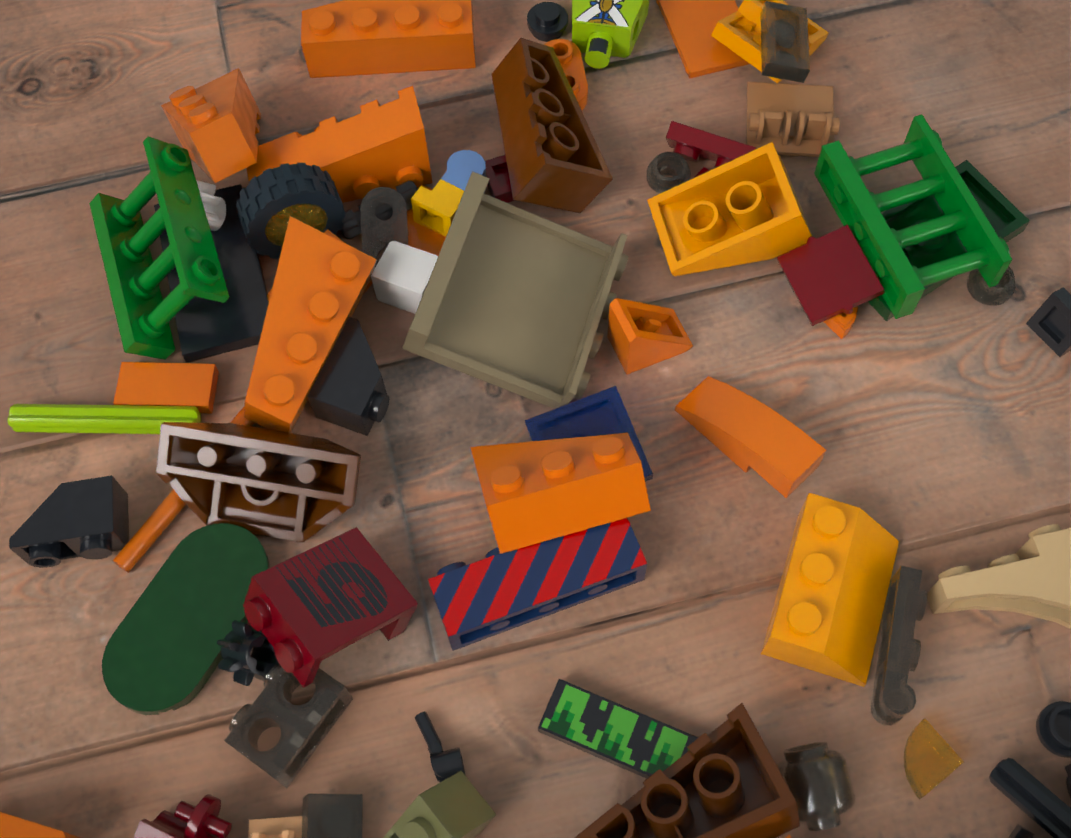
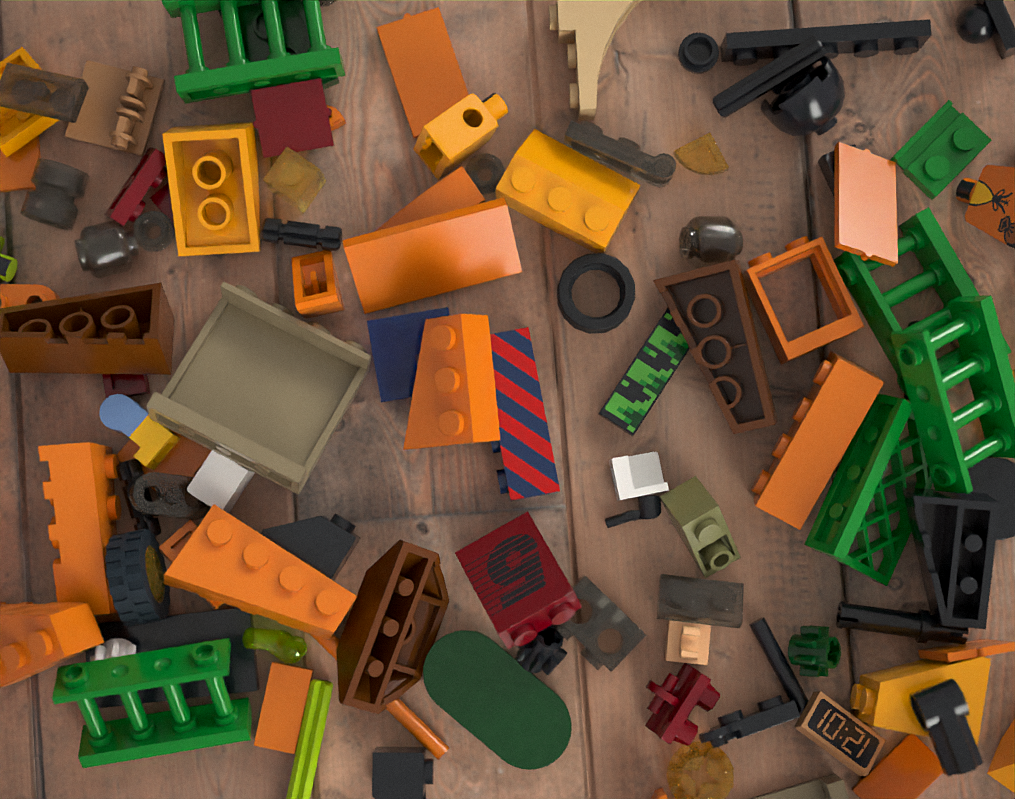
camera: 80 degrees left, 20 degrees up
(237, 366) = (277, 642): none -> clear neon green arm
(486, 740) = (637, 475): none -> white panel
(637, 131) = (106, 249): none -> clear smoke head
(684, 78) = (54, 194): none -> clear smoke wheel
(701, 313) = (301, 234): none -> black axle
(711, 446) = (433, 255): none -> orange tile
(729, 612) = (605, 263): none -> black tyre
(760, 289) = (295, 179): none -> clear yellow brick
(828, 479) = (485, 161): none -> clear smoke plate
(869, 446) = (459, 132): none -> light orange torso
(927, 411) = (422, 66): none -> orange piece

